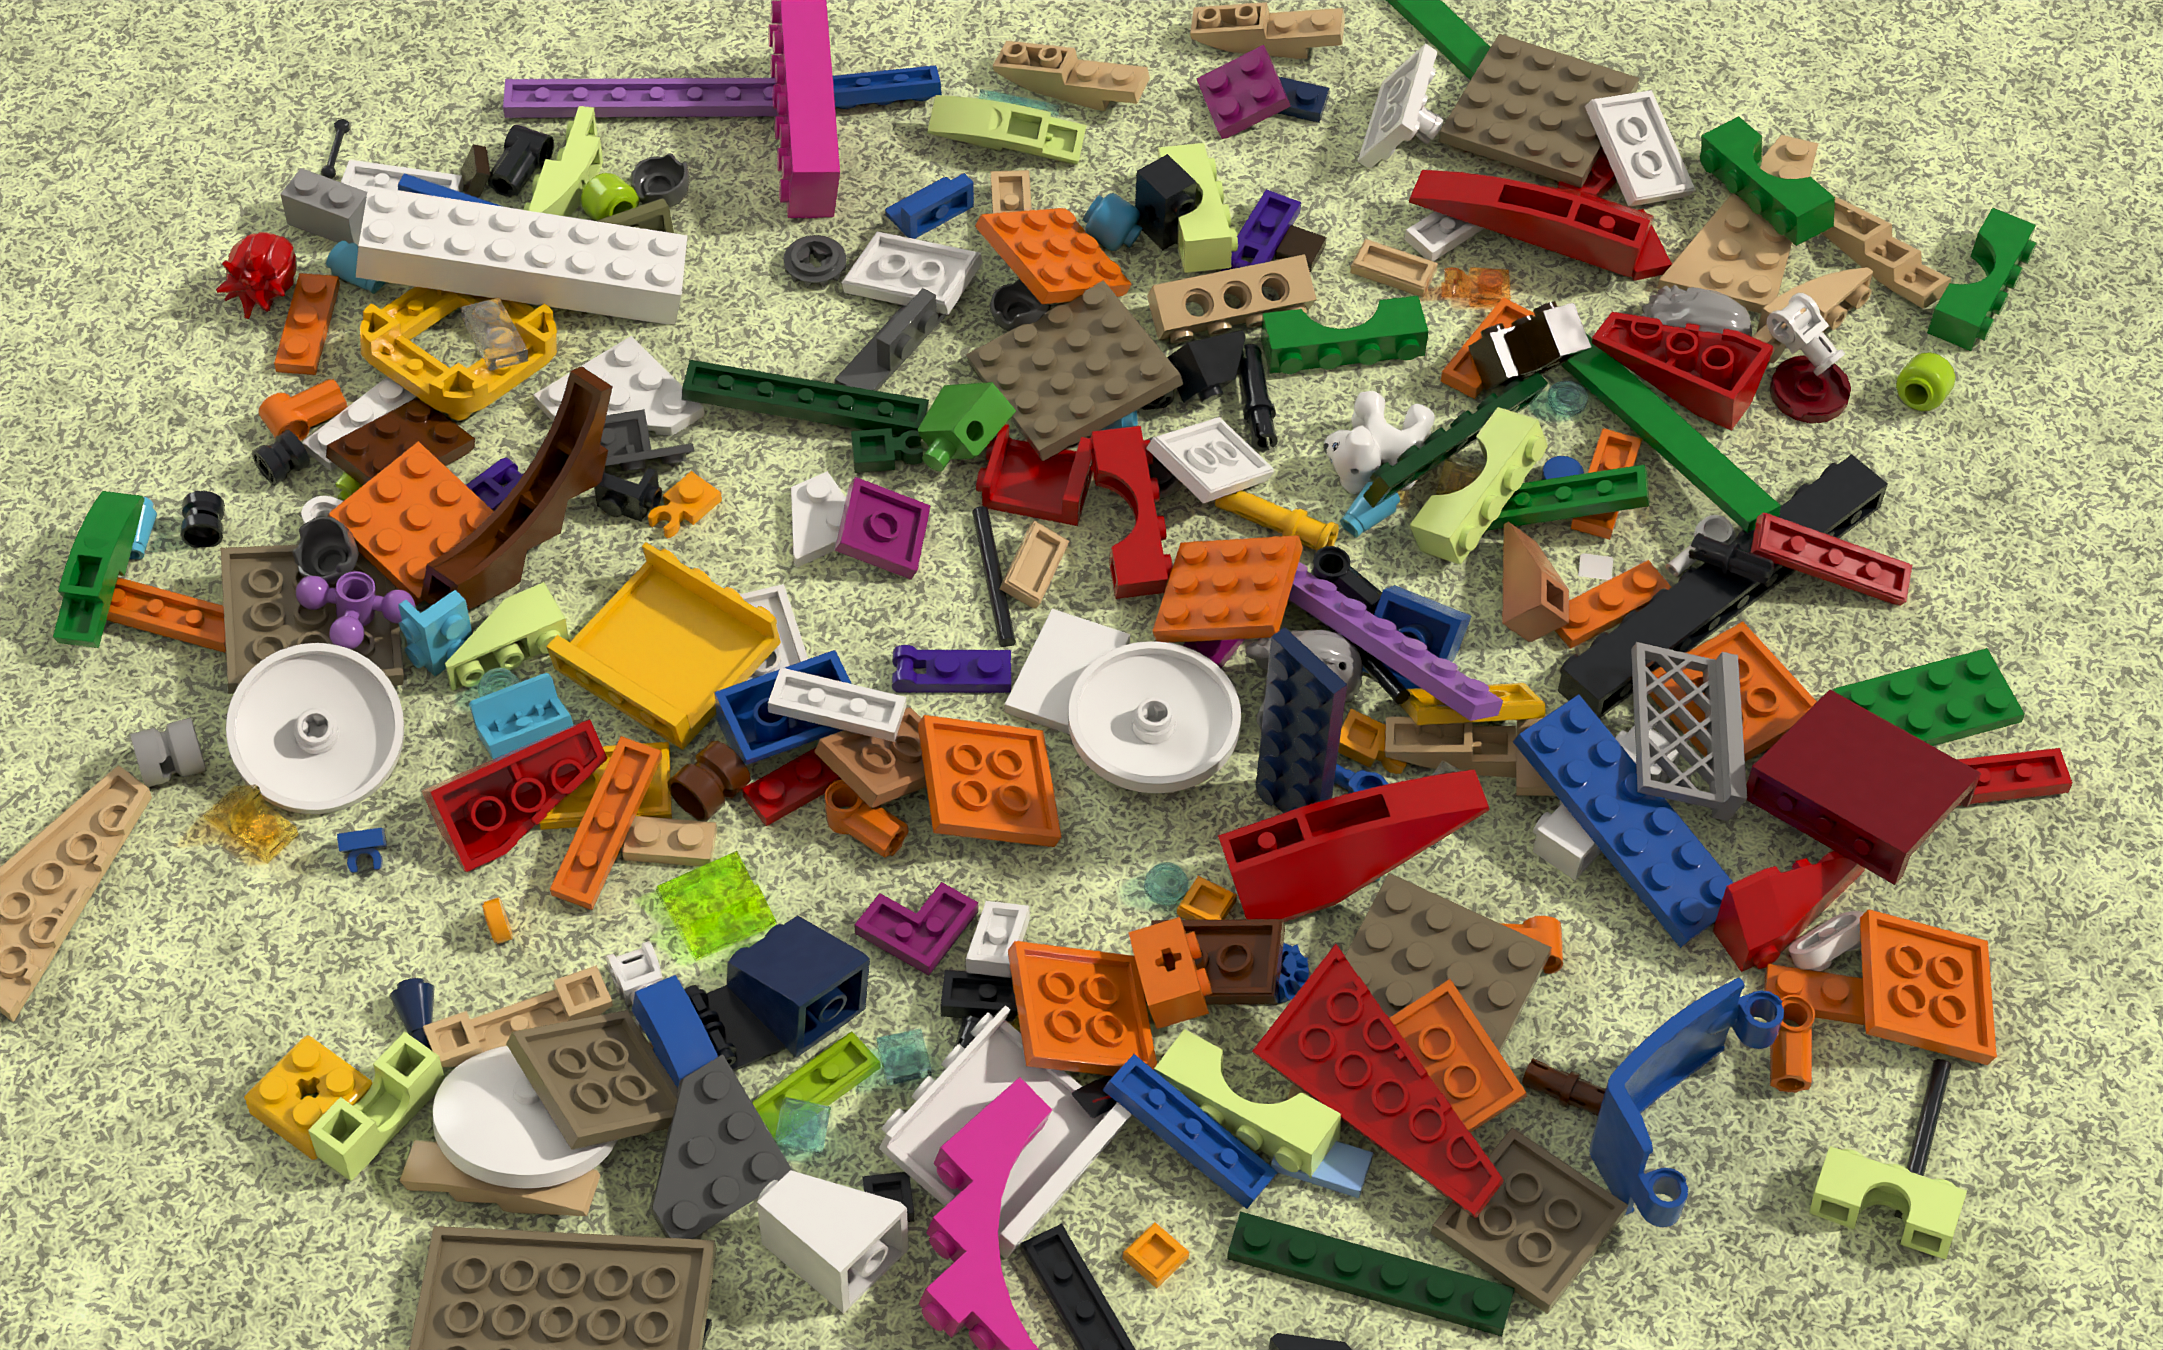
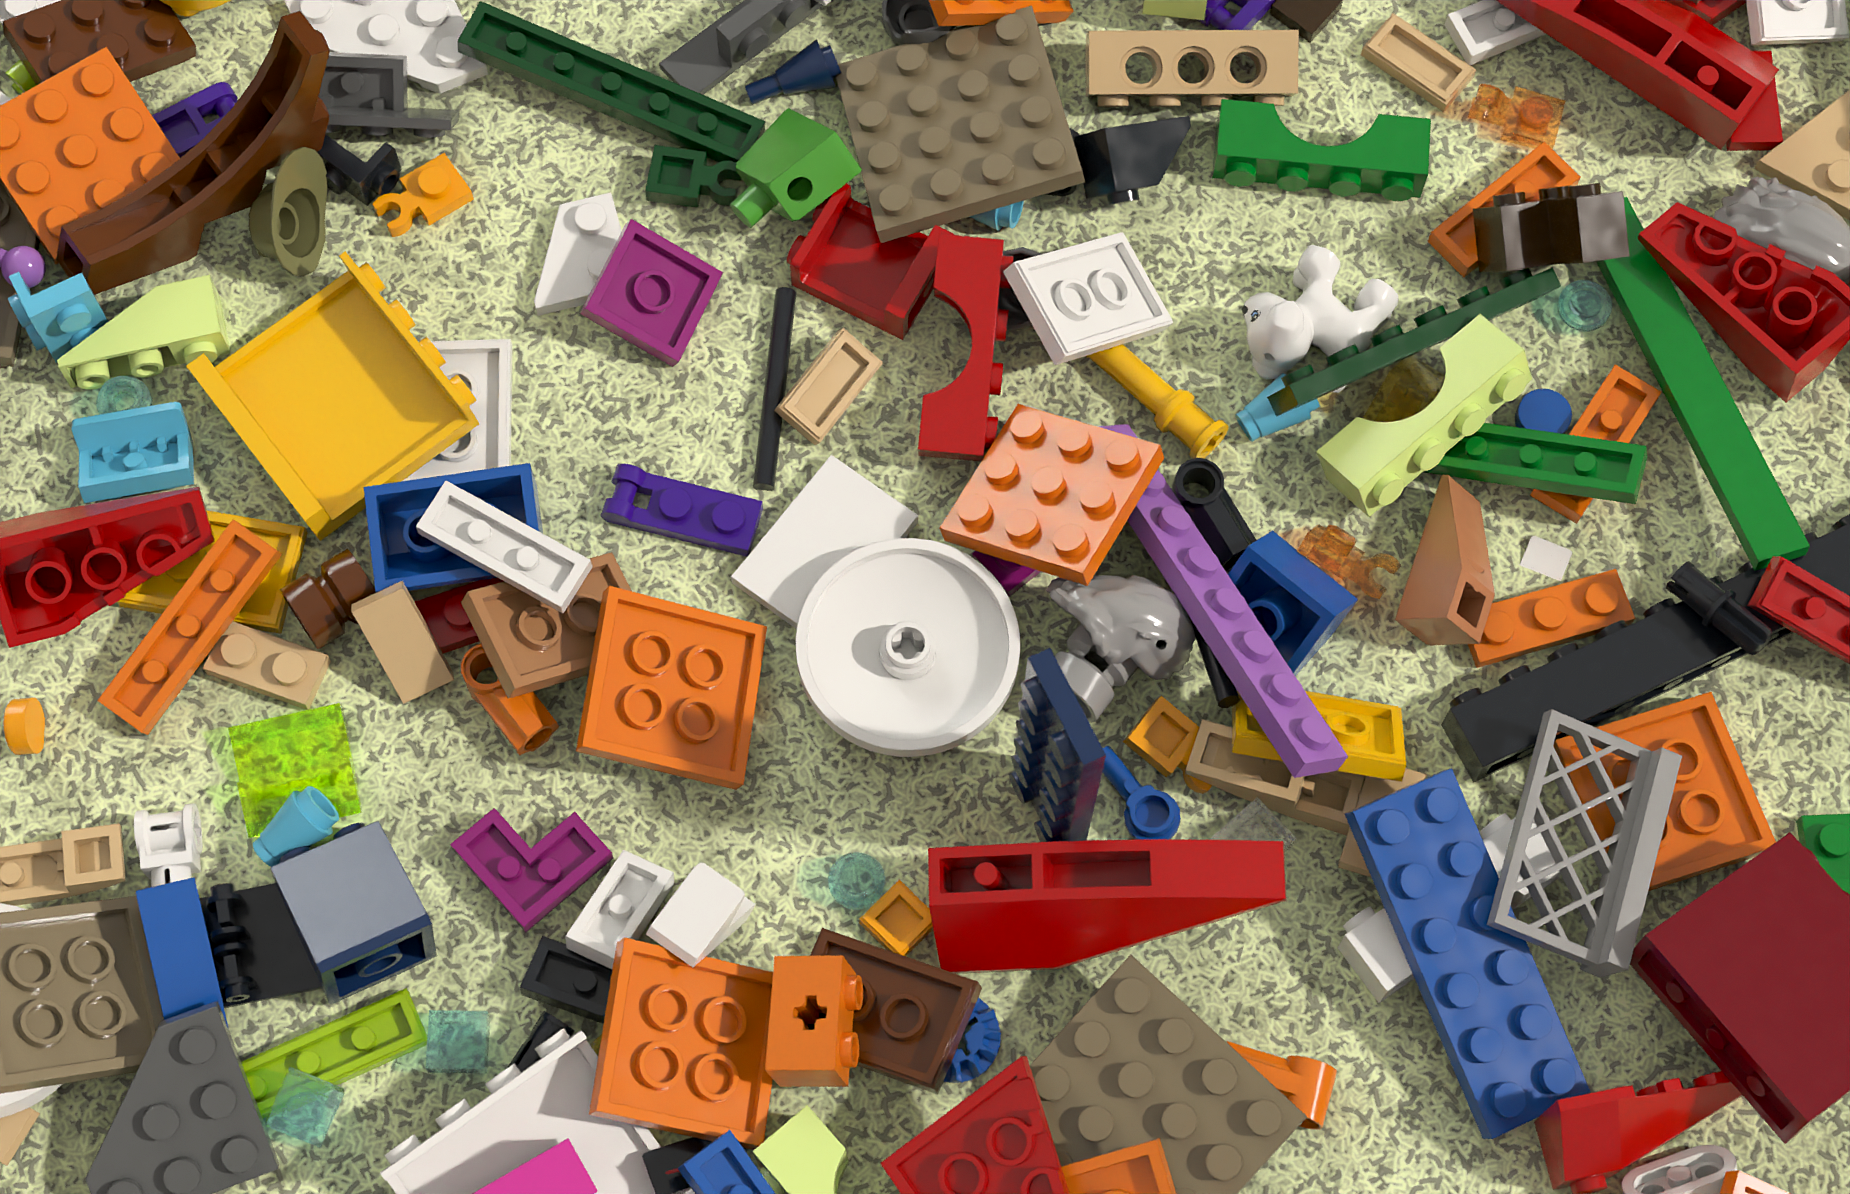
camera: 15 degrees right, 15 degrees up
(588, 531) = (290, 213): none -> olive piece
(734, 932) = (299, 822): none -> medium azure cone
(774, 795) = (402, 642): none -> tan tile
(948, 361) = (806, 71): none -> dark blue cone
(1064, 917) = (700, 915): none -> white slope
(1258, 408) = (1179, 228): black pin -> none
(1445, 589) = (1336, 552): none -> clear orange plate
(1712, 526) = (1710, 550): white plate -> none

